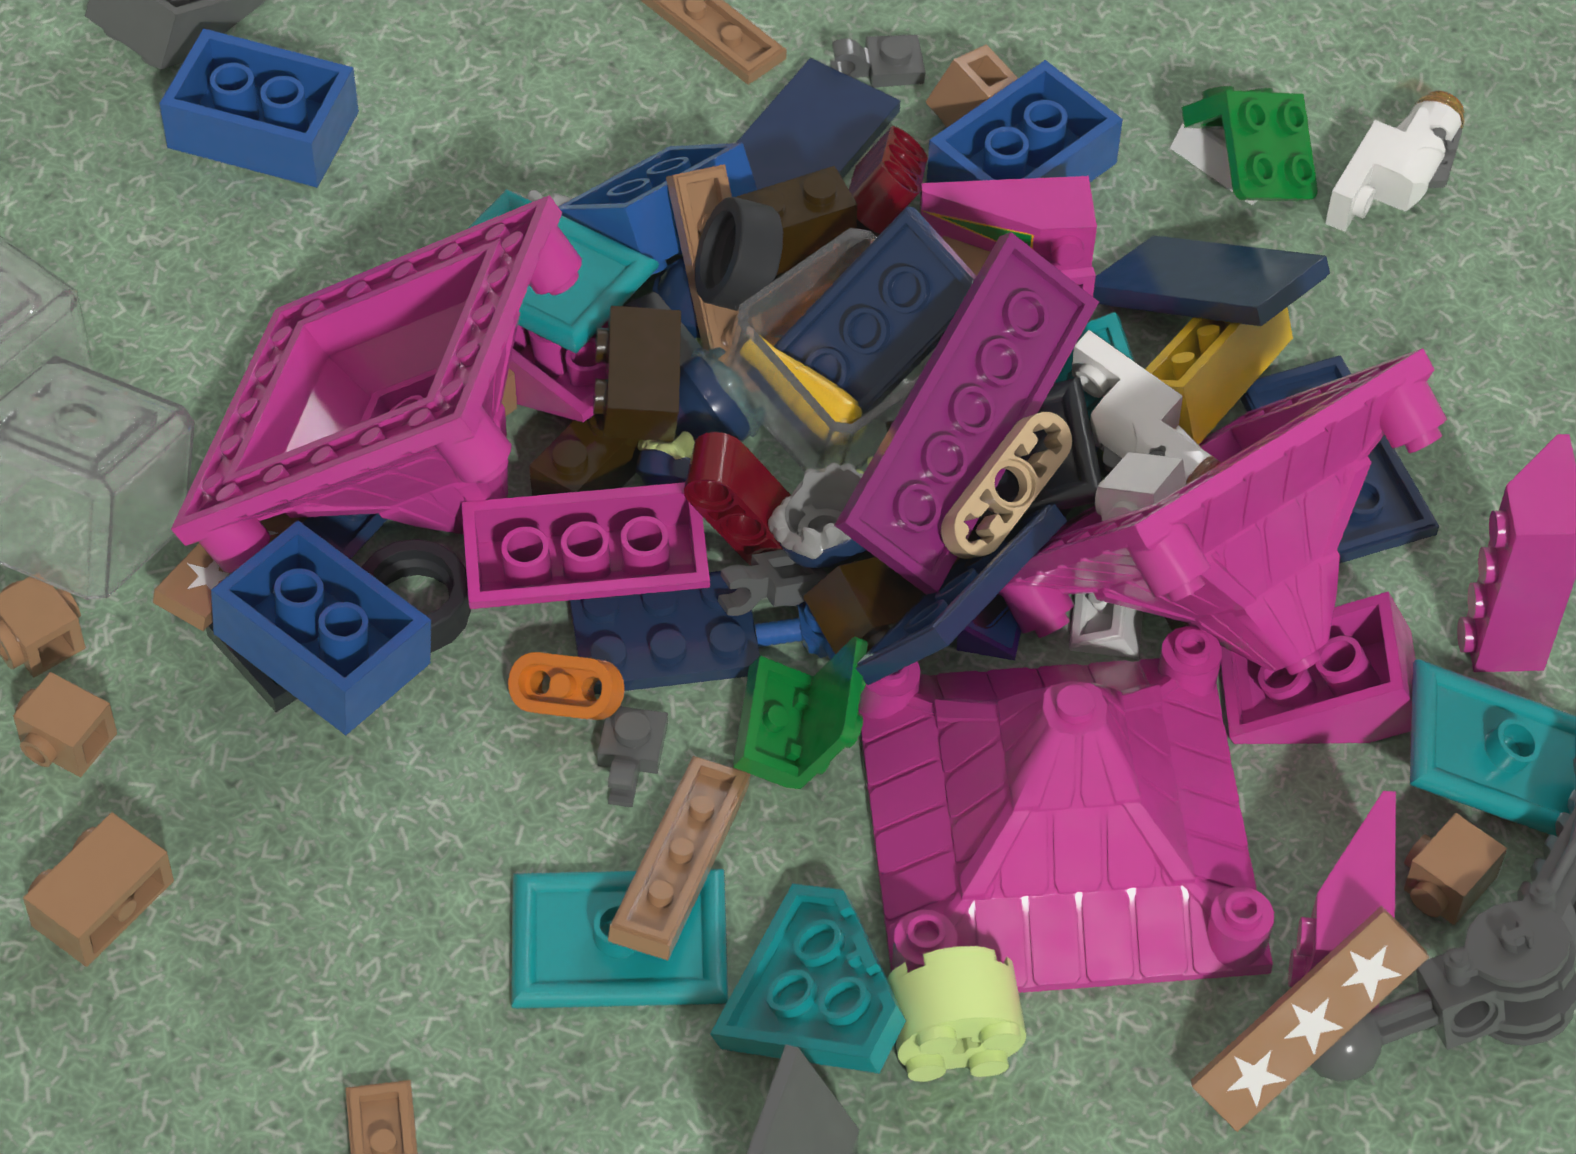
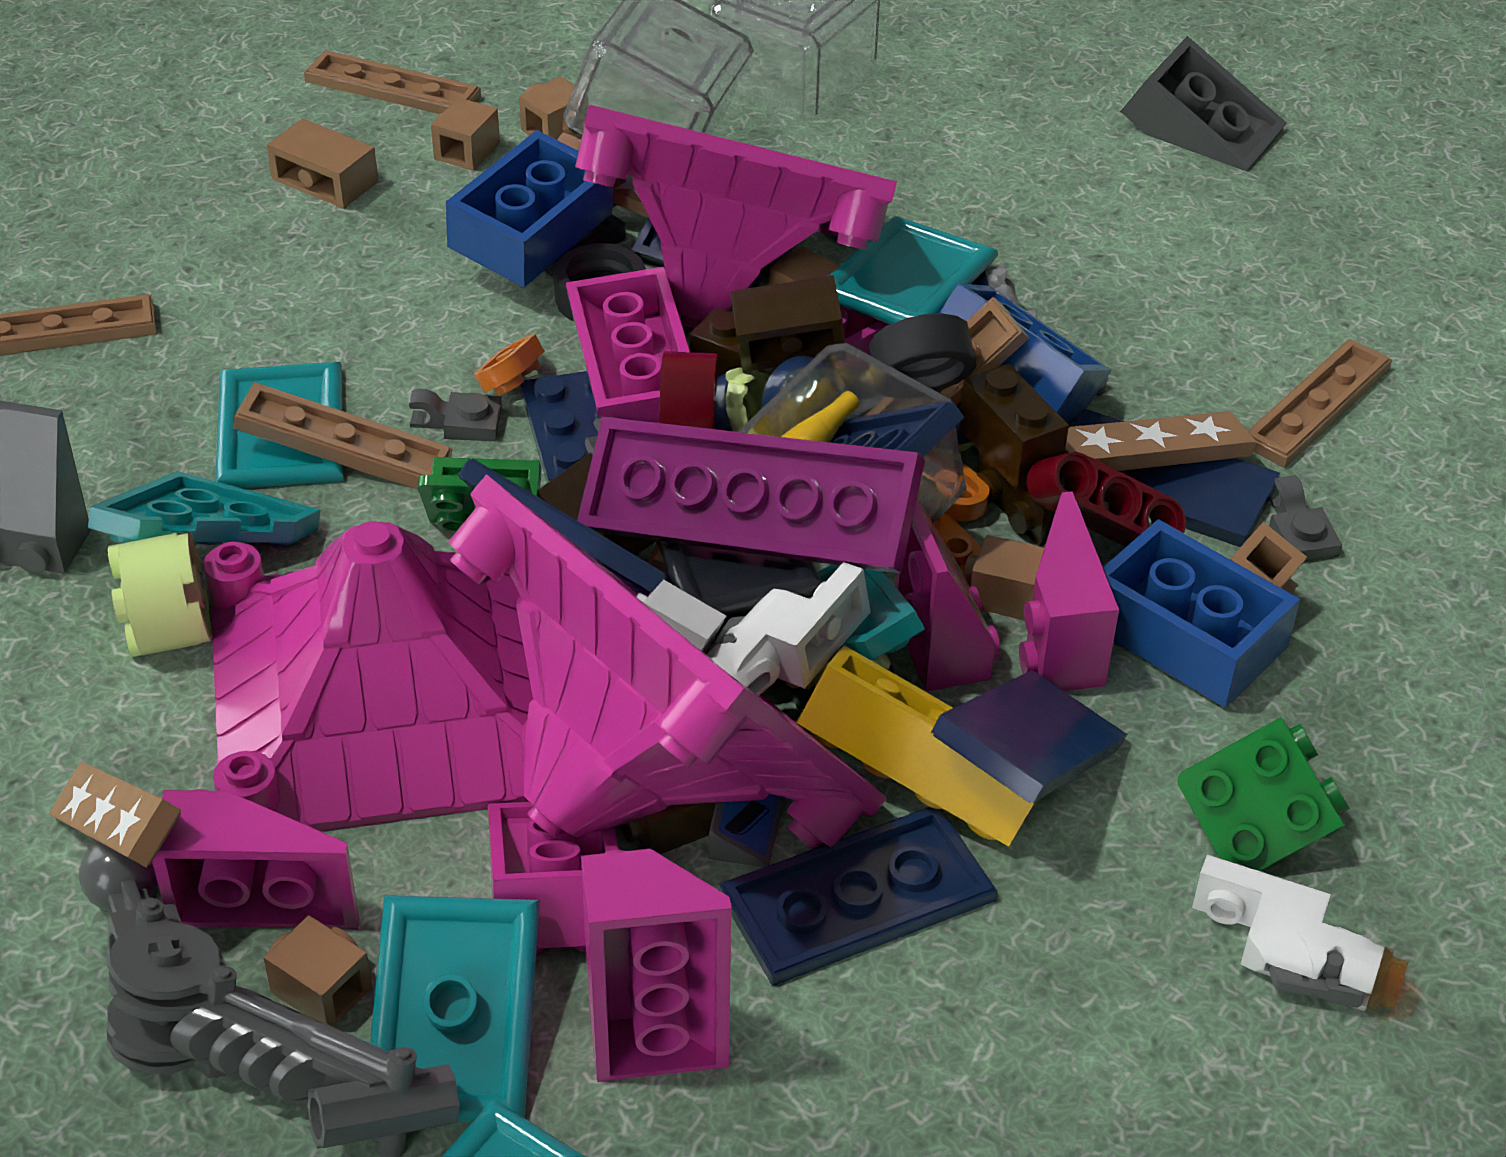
camera: 85 degrees right, 10 degrees down
(259, 107) = (1083, 153): blue brick -> none
(779, 120) = (1163, 441): none -> medium nougat tile
(982, 493) = (691, 552): tan beam -> none

